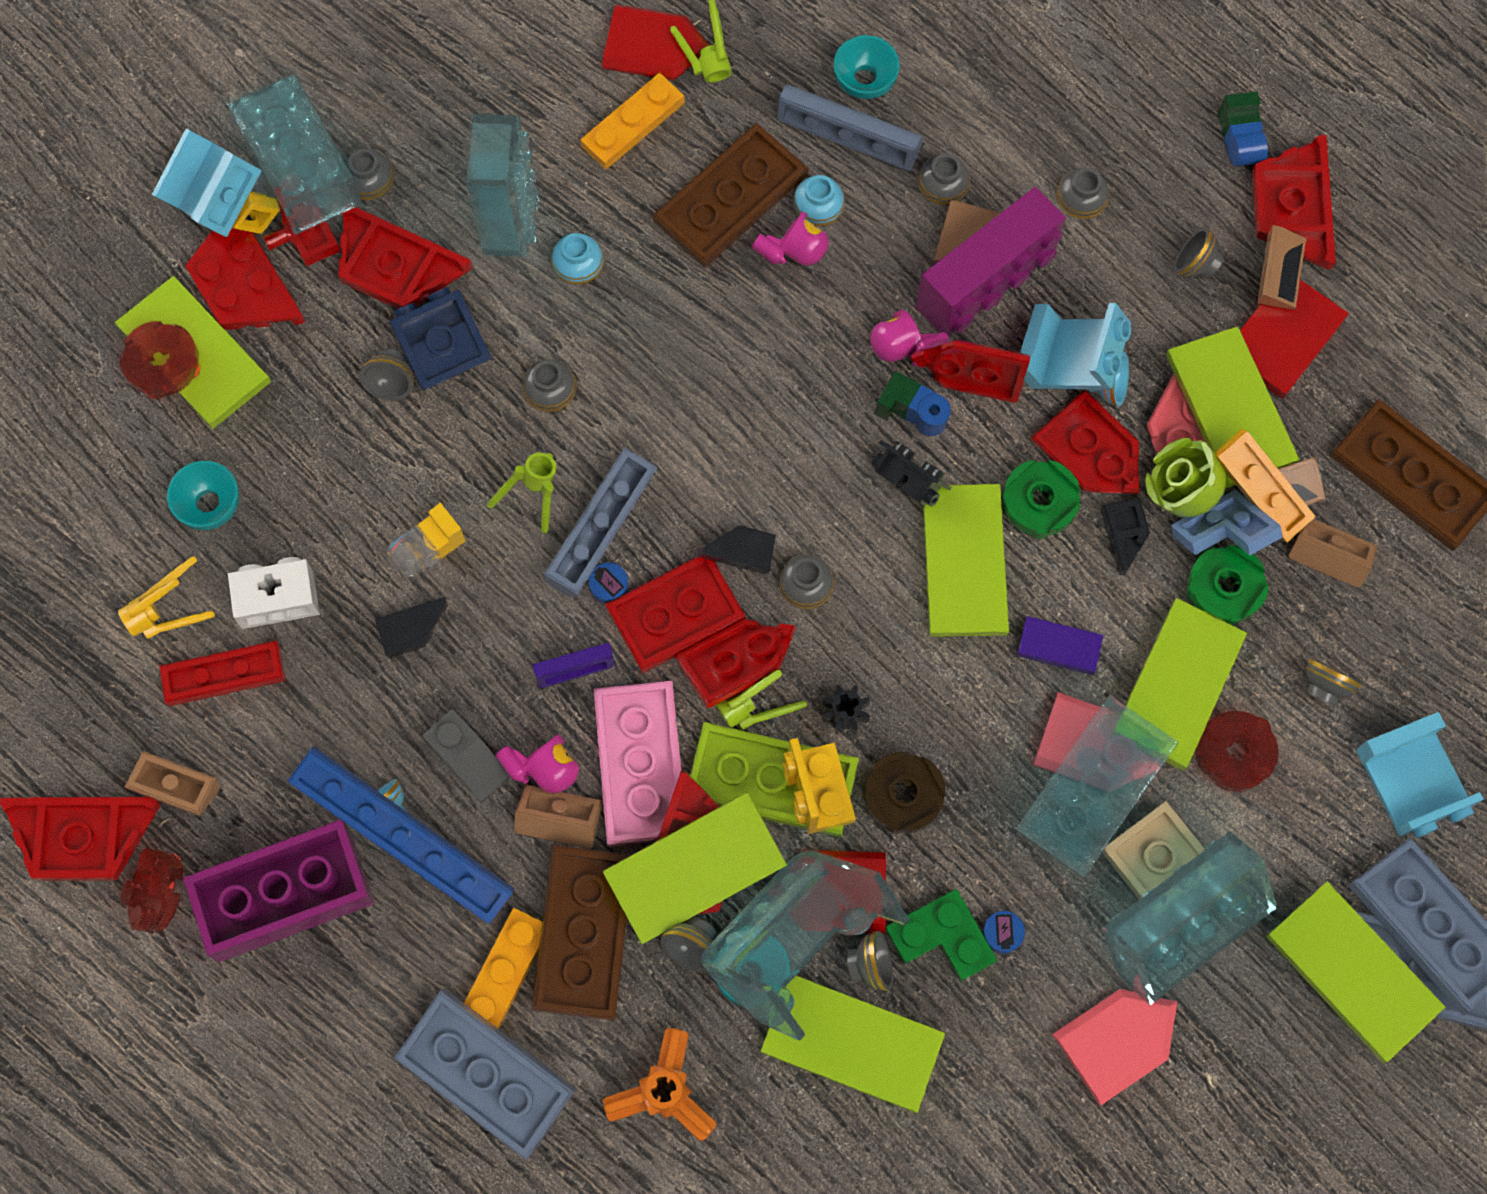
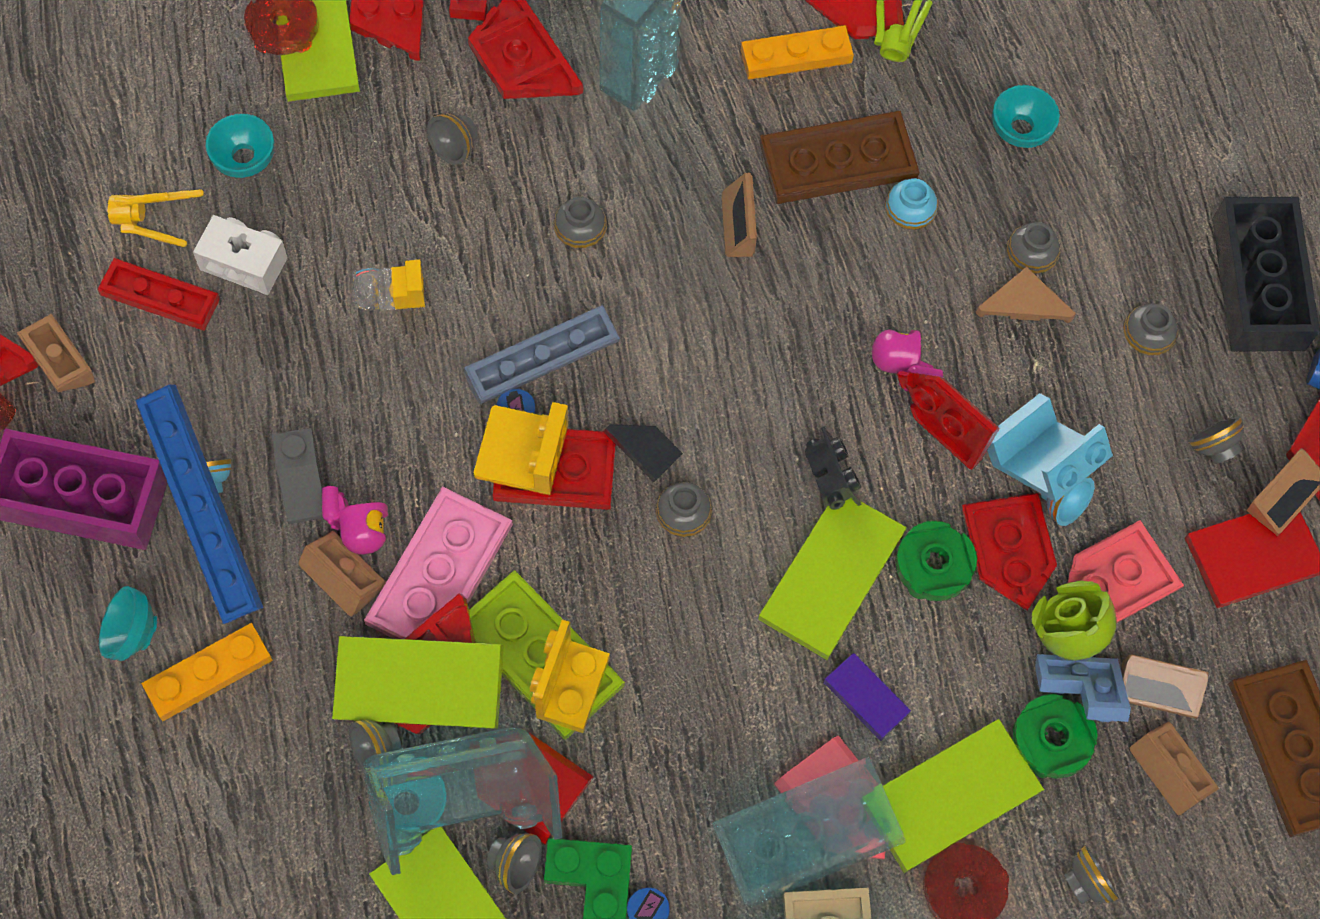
camera: 30 degrees right, 5 degrees down
(408, 978) = (126, 625): none -> teal piece
(410, 627) = (330, 347): black tile -> none
(439, 338) = (513, 132): dark blue plate -> none
(485, 1073) = (132, 743): sand blue tile -> none
(537, 477) = (511, 282): lime plant -> none
(573, 665) = (437, 456): dark purple tile -> none
(577, 258) = (674, 135): medium azure piece -> none
(580, 937) = (286, 682): reddish brown tile -> none
(642, 613) = (522, 448): none -> yellow bracket
(680, 1106) = (271, 870): orange bush -> none
(684, 298) = (739, 217): none -> medium nougat slope
(734, 659) = (575, 533): red tile -> none
(738, 707) = (552, 572): lime plant -> none
(801, 243) = (869, 226): dark pink piece -> none
(849, 127) = (978, 158): sand blue brick -> none
(851, 700) = (637, 622): black gear -> none
(911, 771) = (625, 751): dark brown plate -> none
(915, 404) = (876, 415): leg -> none
(990, 263) = (1022, 335): magenta brick -> none
(1126, 530) = (994, 635): black tile -> none
(1148, 91) = (1265, 274): none -> black brick
(1229, 395) = (1161, 584): lime tile -> none
(1264, 483) = (1142, 668): light orange plate -> none

